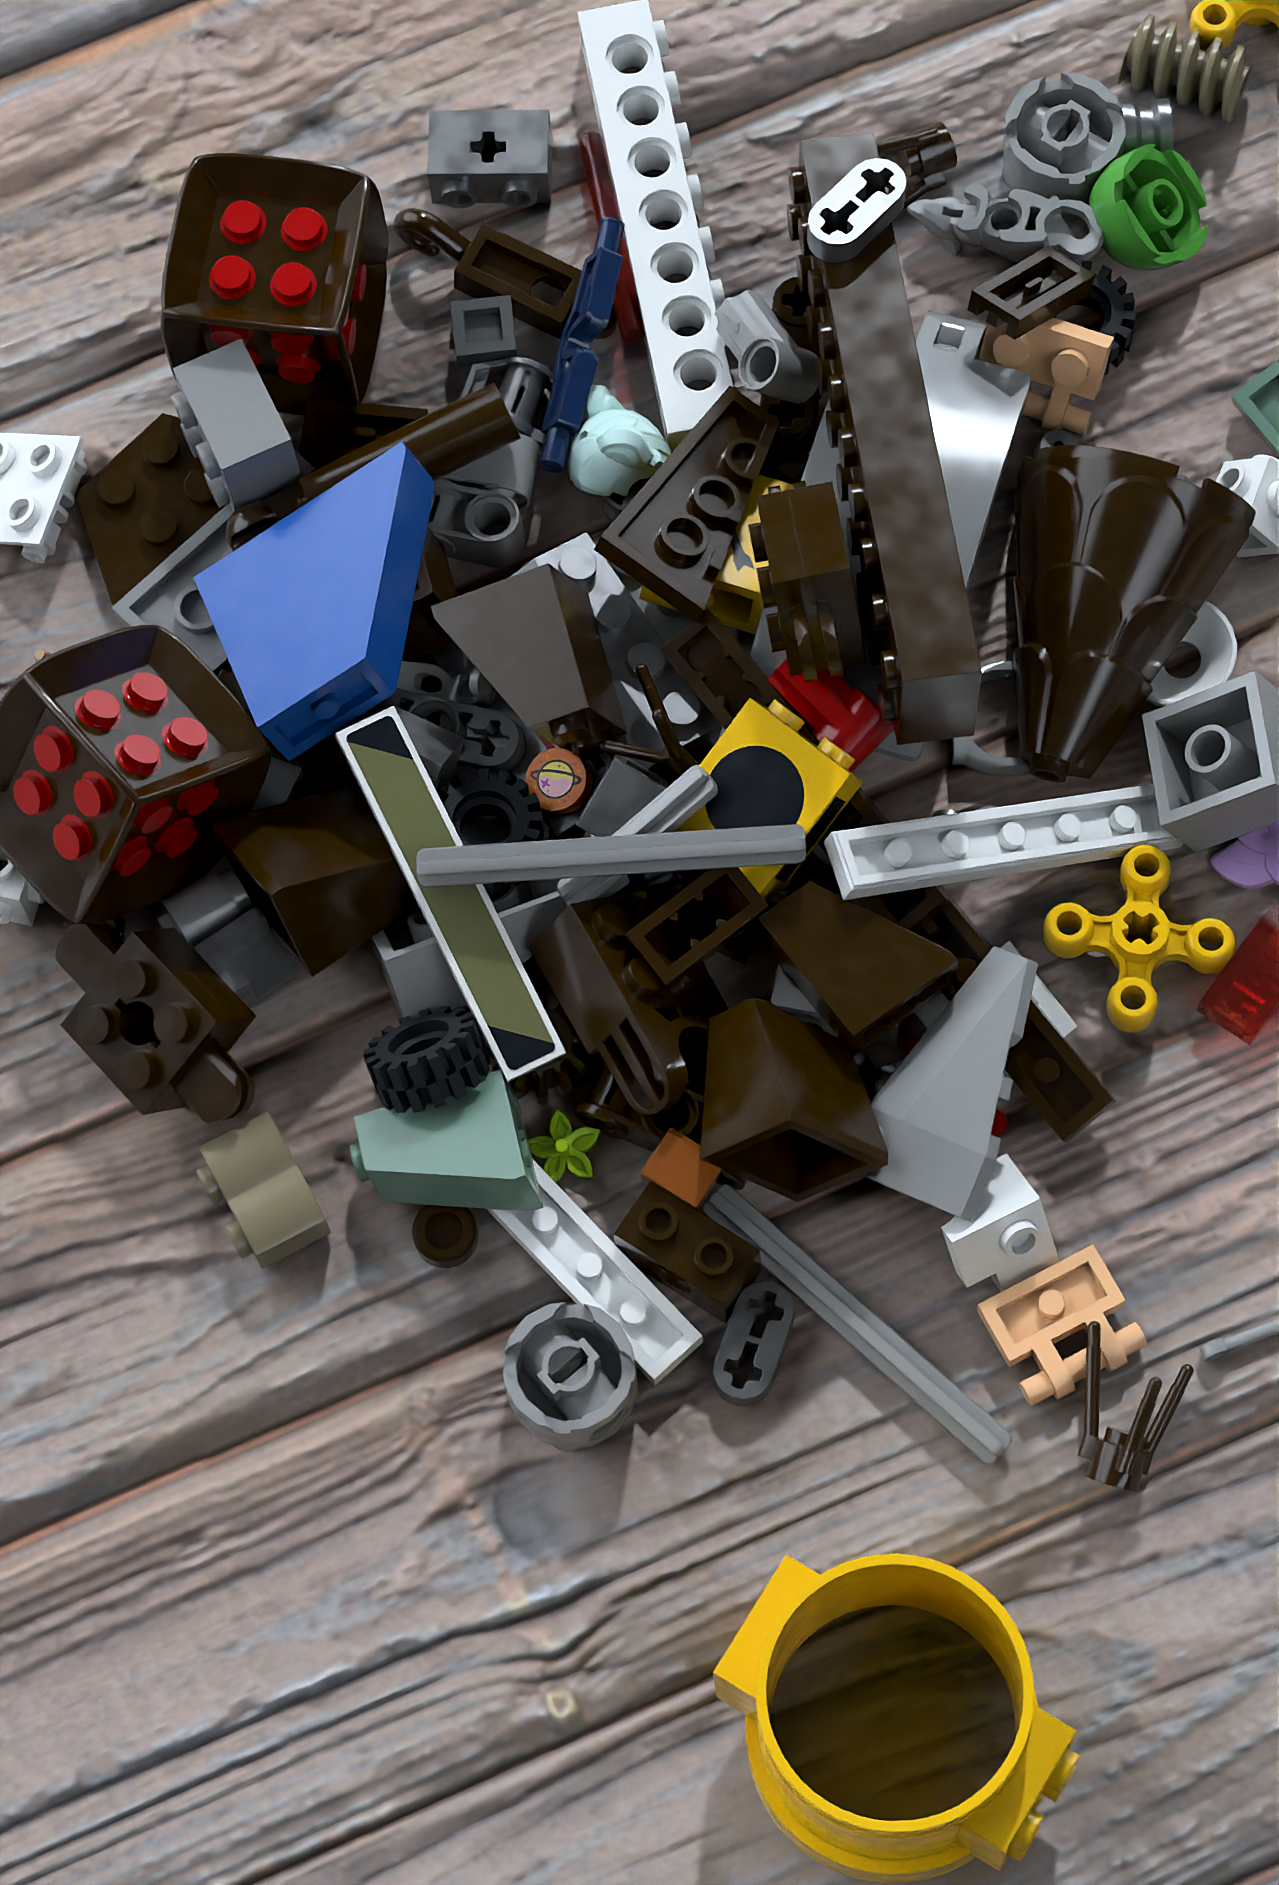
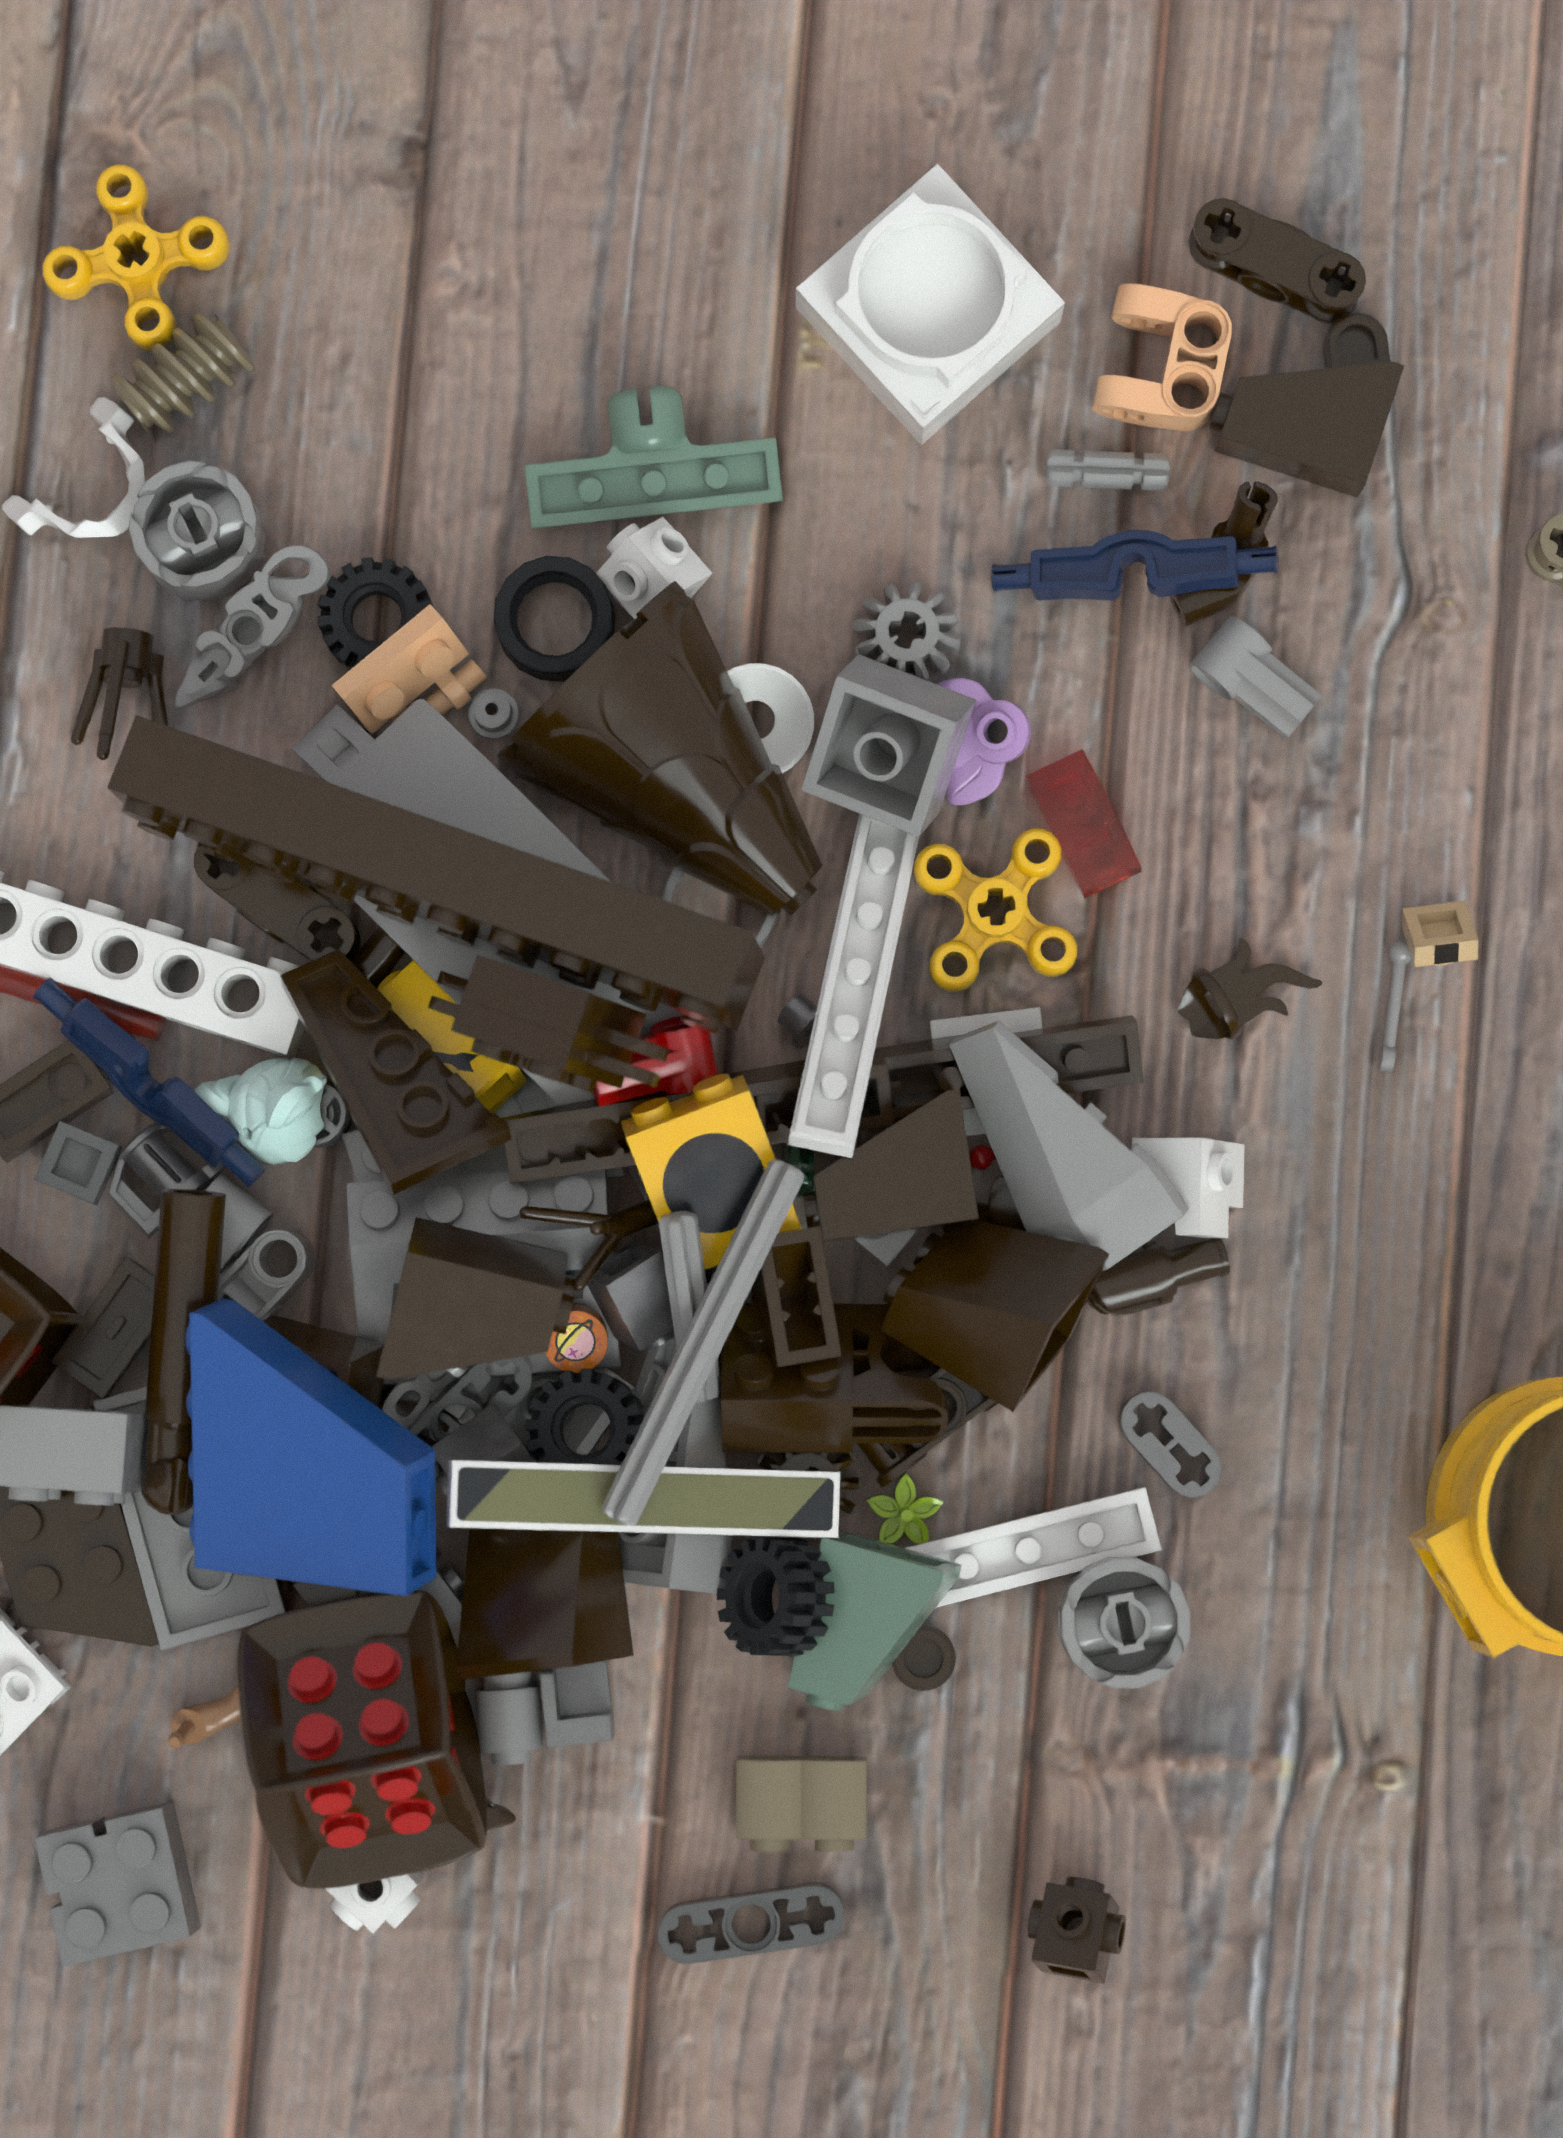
camera: 65 degrees left, 15 degrees up
(120, 1165) = (705, 1944): none -> dark grey beam
(175, 996) = (597, 1787): dark brown brick -> none
(270, 1482) = (1081, 1951): none -> dark brown brick
(680, 1170) = (997, 1431): dark orange slope -> none
(687, 1251) = (1065, 1459): dark brown brick -> none
(765, 350) = (278, 925): light grey piece -> none
(849, 203) = (204, 785): beam -> none
(861, 1327) = (1202, 1347): light grey axle -> none
(894, 1241) = (1153, 1274): none -> dark brown arm
(1000, 23) = (113, 424): none -> white helmet
(1040, 297) = (357, 690): dark brown tile -> none
(1052, 1307) = (1280, 1174): light nougat plate -> none
(1124, 1455) = (1438, 1188): dark brown plant -> none
(1148, 125) = (222, 444): flat silver wheel -> none
(1149, 209) = (313, 494): bright green cylinder -> none
(1179, 414) = (522, 582): none -> black tyre
(1185, 1181) = (1227, 998): none -> dark brown piece

